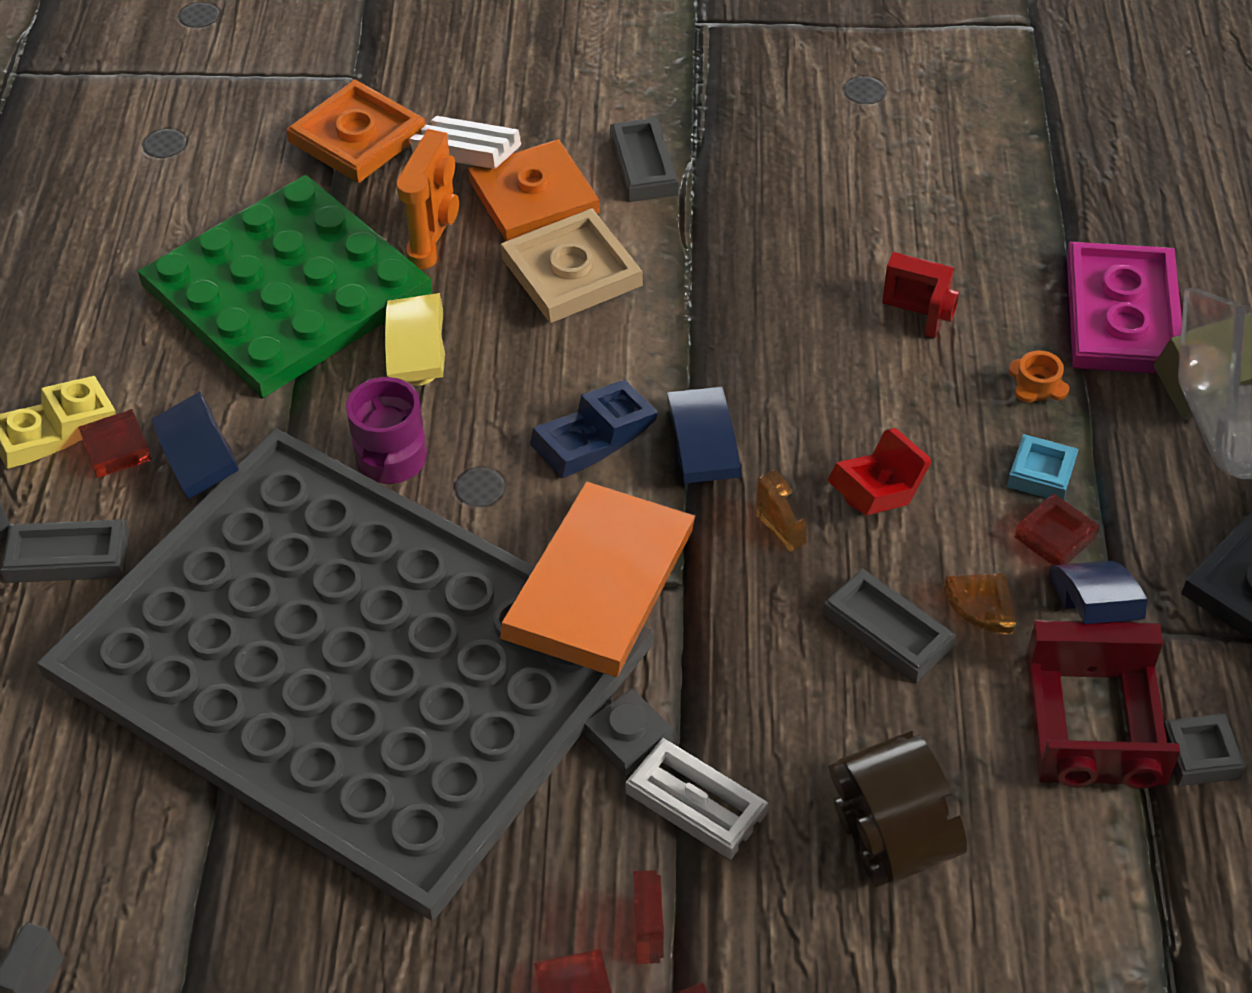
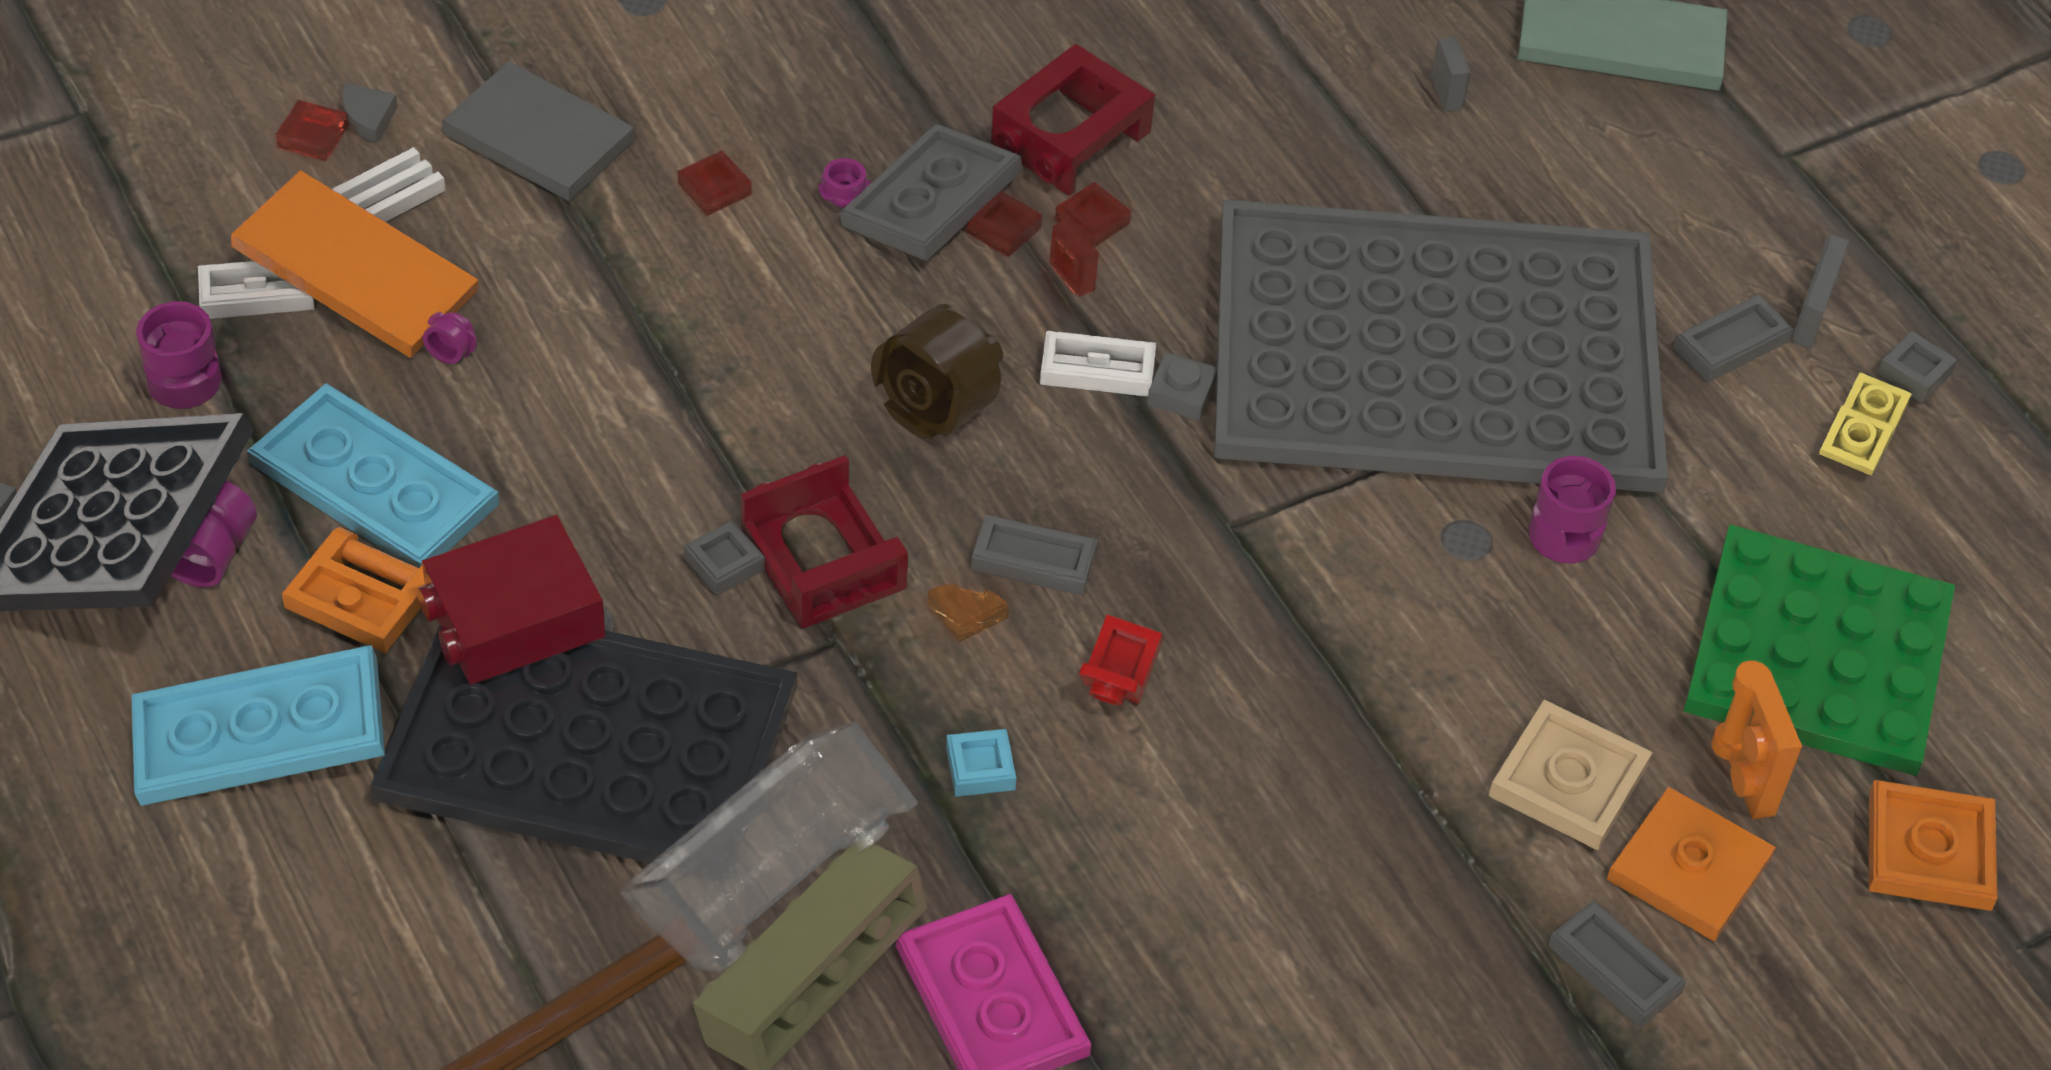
camera: 145 degrees right, 0 degrees up
(114, 443) = (1793, 432): clear red tile -> none
(194, 445) = (1706, 430): dark blue slope -> none
(414, 339) = (1647, 626): light yellow slope -> none
(474, 142) = (1804, 864): white tile -> none
(598, 579) = (1289, 462): orange tile -> none
(602, 425) = (1410, 618): dark blue slope -> none
(703, 435) = (1309, 646): dark blue slope -> none
(776, 512) = (1187, 600): clear orange tile -> none
(921, 288) = (1205, 897): red bracket -> none
(1039, 377) = (1039, 840): orange plate -> none
(1056, 531) = (935, 702): clear red tile -> none
(1099, 591) = (874, 625): dark blue slope -> none

